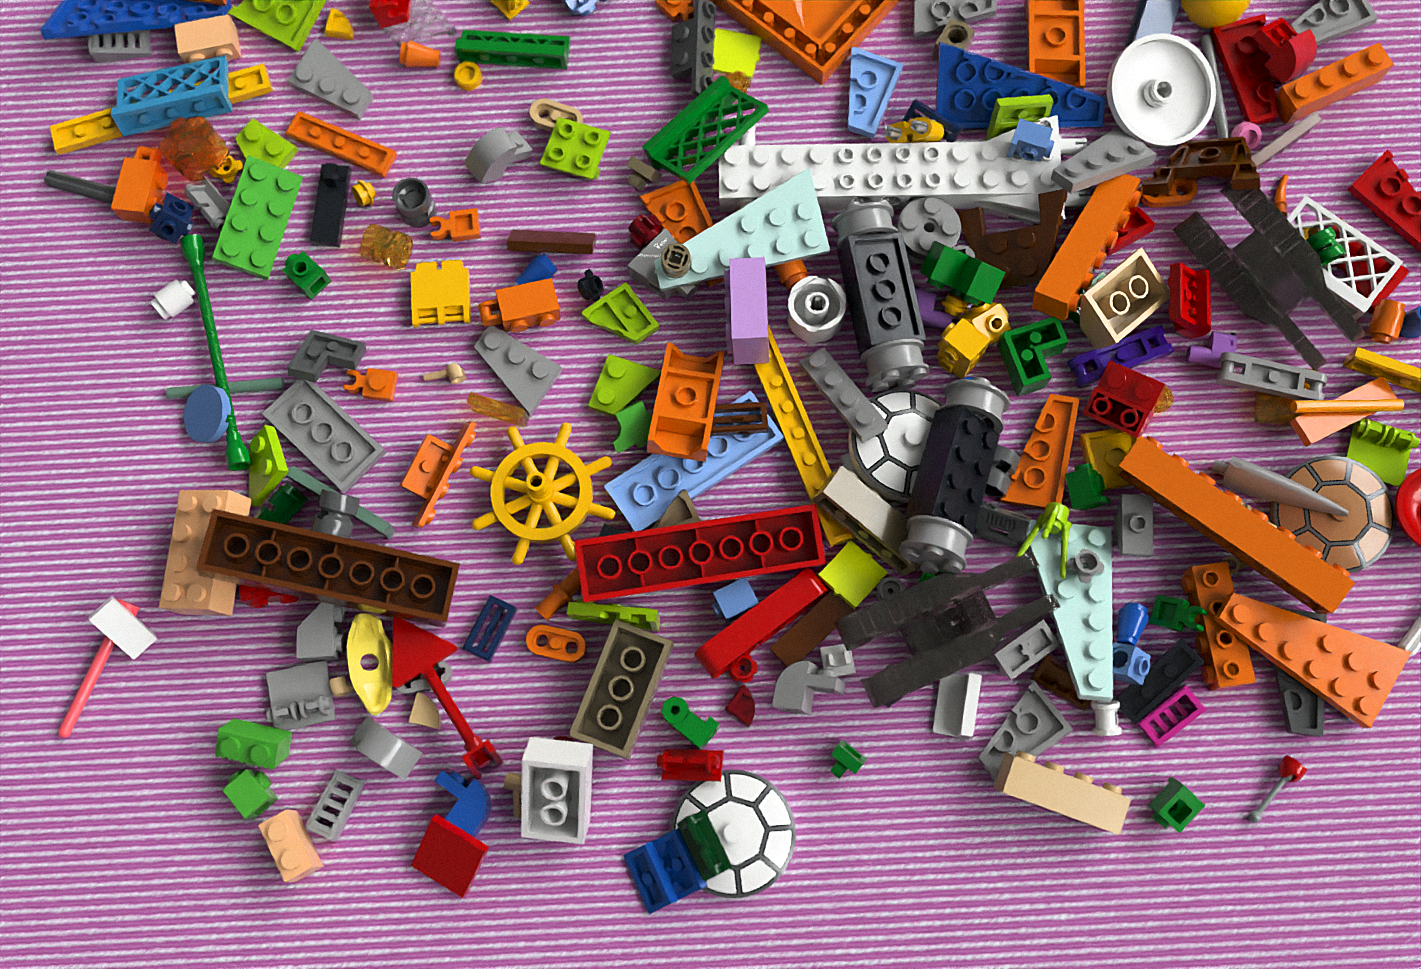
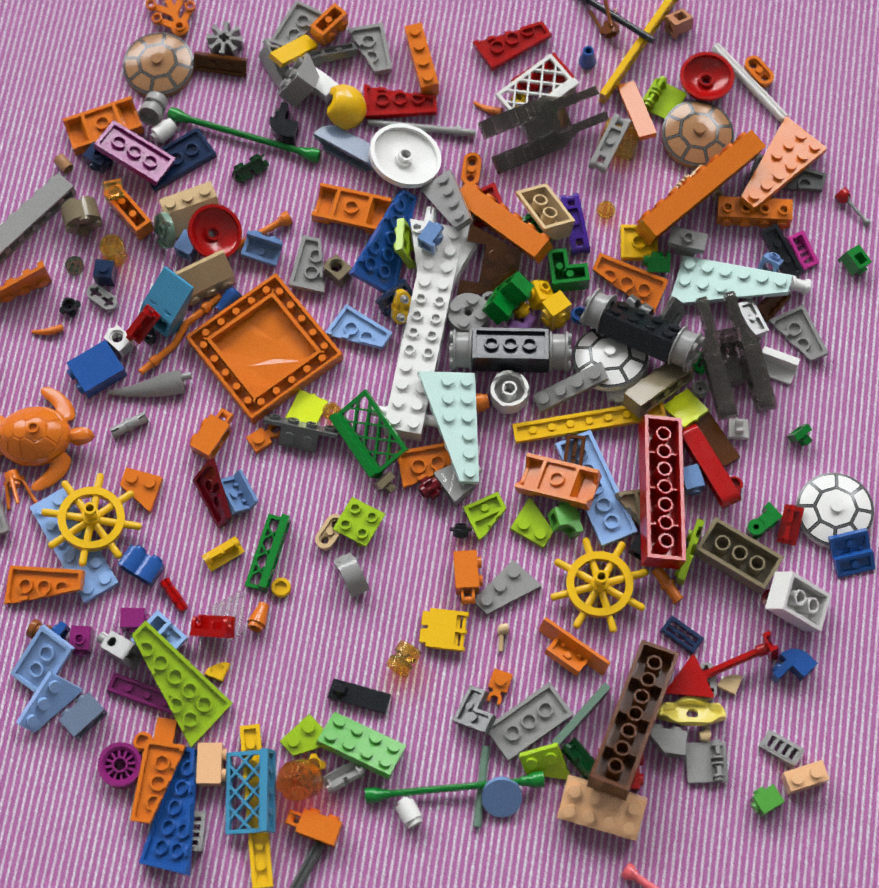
camera: 80 degrees left, 5 degrees down
(122, 627) = (643, 870): white tile -> none
(171, 218) = (350, 803): dark blue brick -> none
(253, 743) = (736, 792): bright green brick -> none
(306, 274) = (418, 718): green brick -> none
(329, 81) = (261, 684): light grey wing -> none
(335, 514) = (596, 711): dark grey wheel -> none
(341, 144) = (313, 683): orange tile -> none
(363, 193) = (357, 671): yellow plate -> none
(385, 748) = (750, 710): light grey brick -> none
(414, 202) = (375, 634): dark grey wheel -> none
(449, 856) = (825, 678): red tile -> none
(461, 225) = (396, 608): orange plate -> none
(497, 410) = (536, 604): clear yellow tile -> none
(514, 782) = (784, 634): tan hand -> none
(538, 269) = (442, 564): blue cone -> none
(551, 242) = (422, 550): reddish brown tile -> none
(557, 643) = (699, 594): orange plate -> none
(674, 265) = (466, 467): dark tan wheel -> none
(704, 845) = (842, 523): dark green hinge -> none
(742, 706) = (757, 490): dark red tile -> none
(747, 310) = (507, 429): lavender brick -> none
(797, 686) = (750, 452): light grey brick -> none
(1052, 521) = (676, 283): lime plant -> none
(1062, 793) = (840, 318): tan brick -> none
(1087, 557) = (708, 267): light grey plate -> none
(1124, 399) = (606, 227): red brick -> none
(1131, 623) = (745, 258): blue cone -> none
(1174, 613) = (743, 234): green plate -> none
(1190, 300) = (551, 173): red brick -> none
(1207, 158) = (460, 138): reddish brown wing -> none
(1210, 356) = (580, 167): medium lavender piece -> none
(1250, 132) = (445, 116): bright pink tile -> none
(1269, 485) = (675, 161): light grey piece -> none
(1283, 142) = (460, 104): tile -> none
(1290, 51) = (394, 78): red brick -> none
(1327, 245) = (533, 92): green wheel -> none
(1347, 405) = (635, 107): light orange bar -> none
(1387, 321) = (584, 72): orange brick -> none

